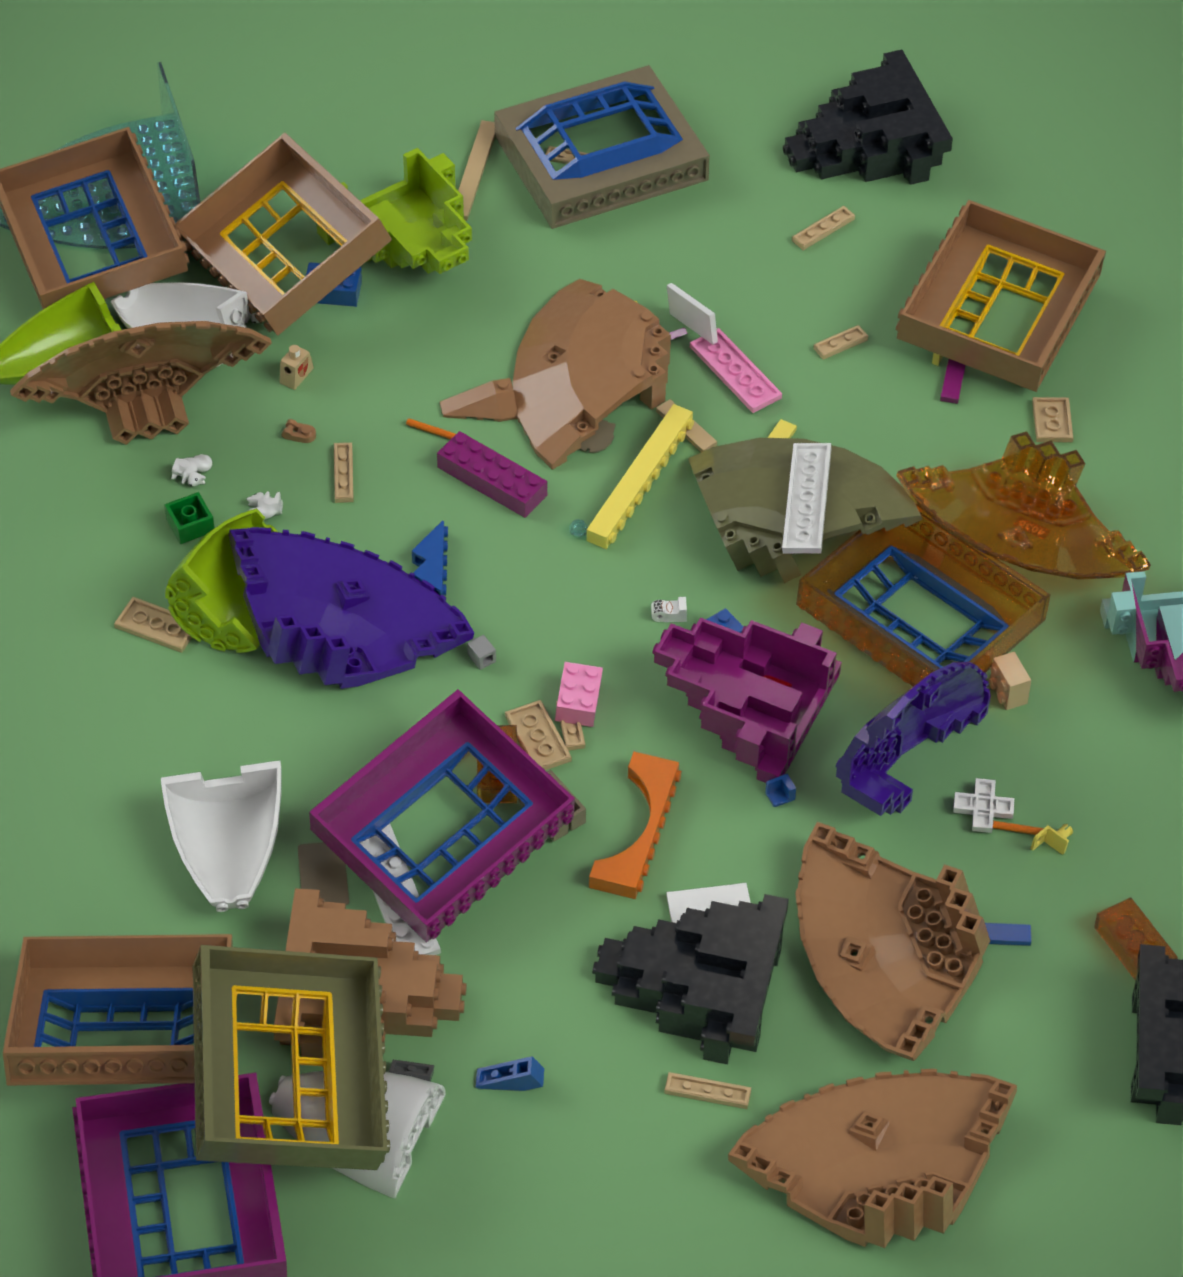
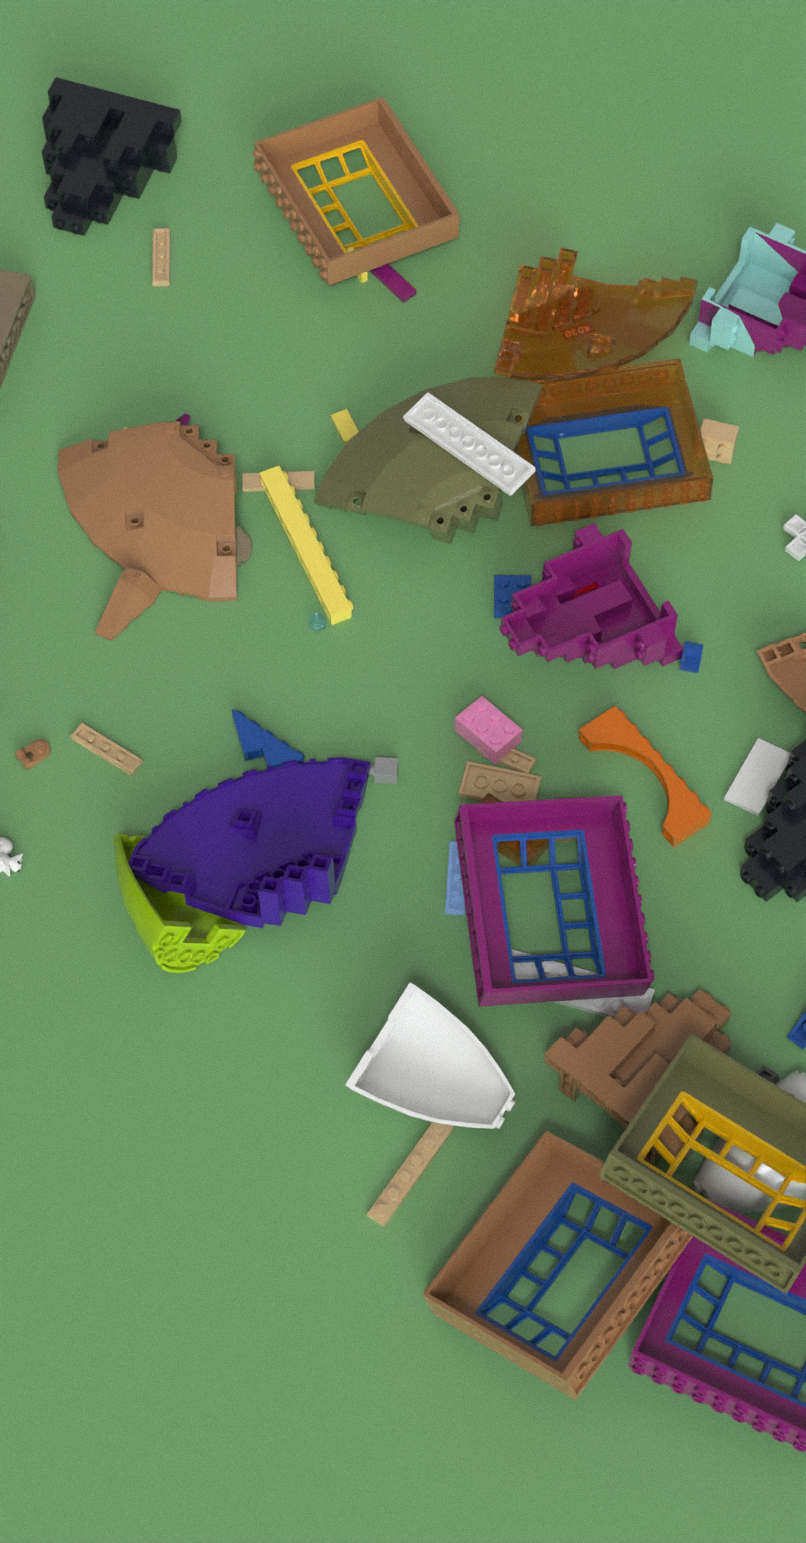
camera: 50 degrees left, 10 degrees up
(137, 883) = (409, 1173): none -> tan plate
(152, 624) = (144, 992): tan tile -> none
(189, 517) = (59, 893): green brick -> none
(265, 504) = (97, 829): white animal -> none
(323, 871) = (511, 1030): dark tan sticker -> none
(431, 429) = (128, 652): orange bar -> none
(492, 474) = (210, 644): magenta brick -> none
(669, 610) = (455, 614): white leg -> none
(692, 313) = (179, 398): white tile -> none
(737, 372) = (253, 410): bright pink plate -> none
(840, 342) = (287, 325): tan tile -> none
(931, 710) = (749, 529): dark purple panel -> none
(1052, 419) = (487, 247): tan tile -> none

